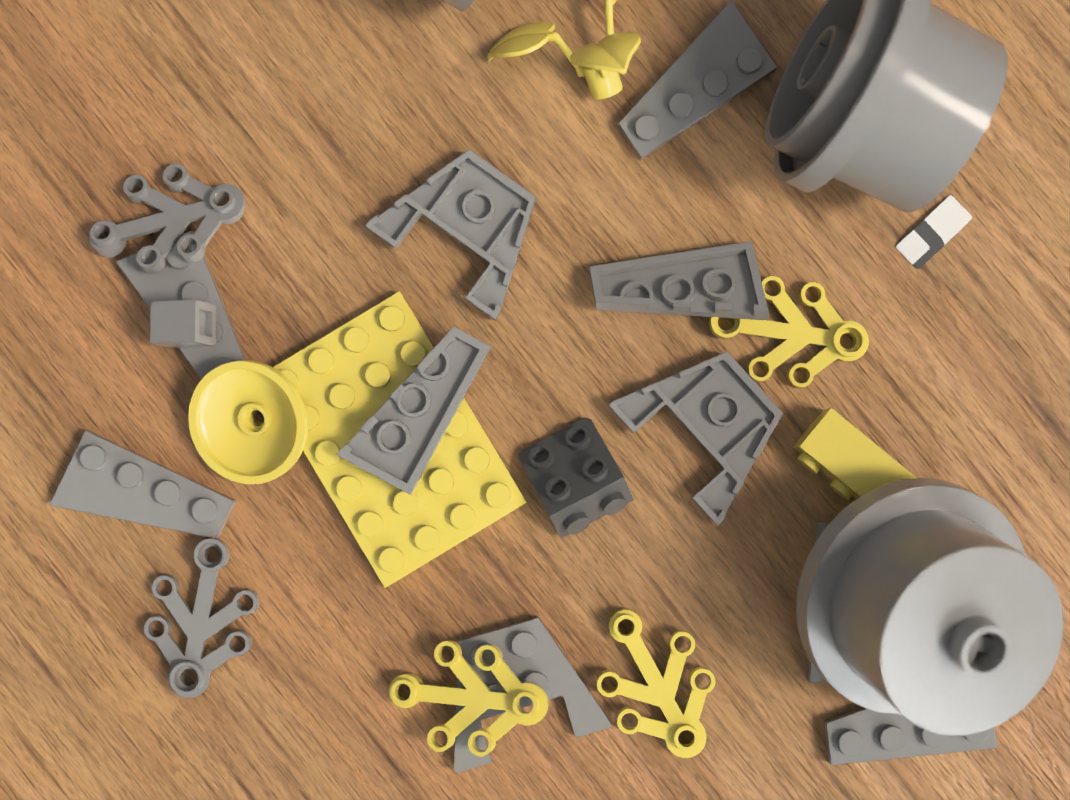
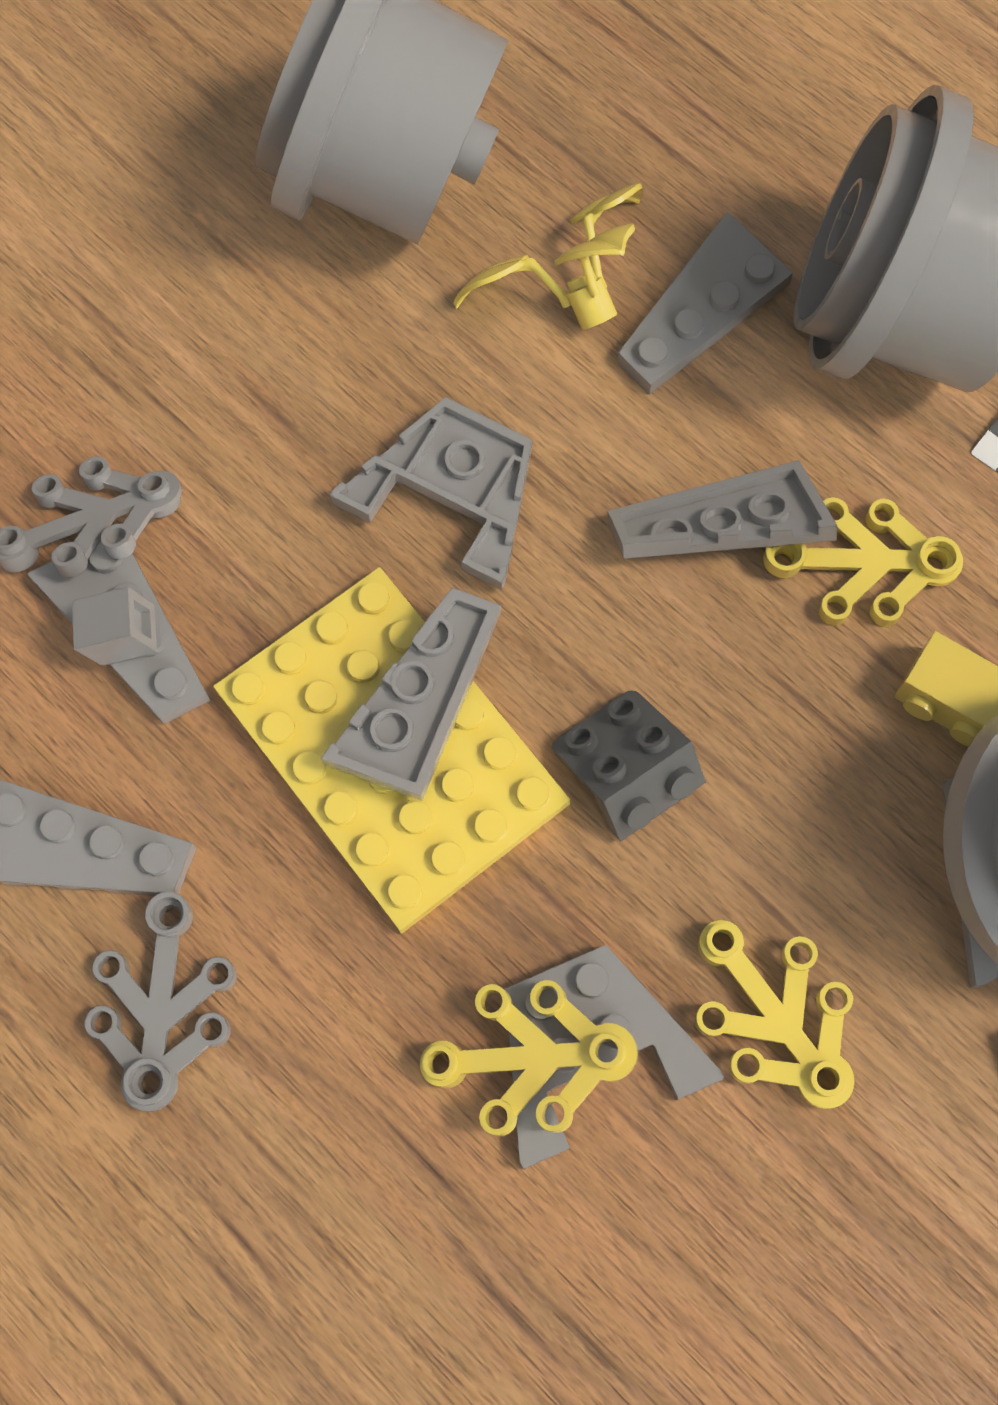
camera: 10 degrees left, 15 degrees down
(227, 427) = (175, 729): light yellow dish -> none
(723, 414) = (797, 660): light grey wing -> none

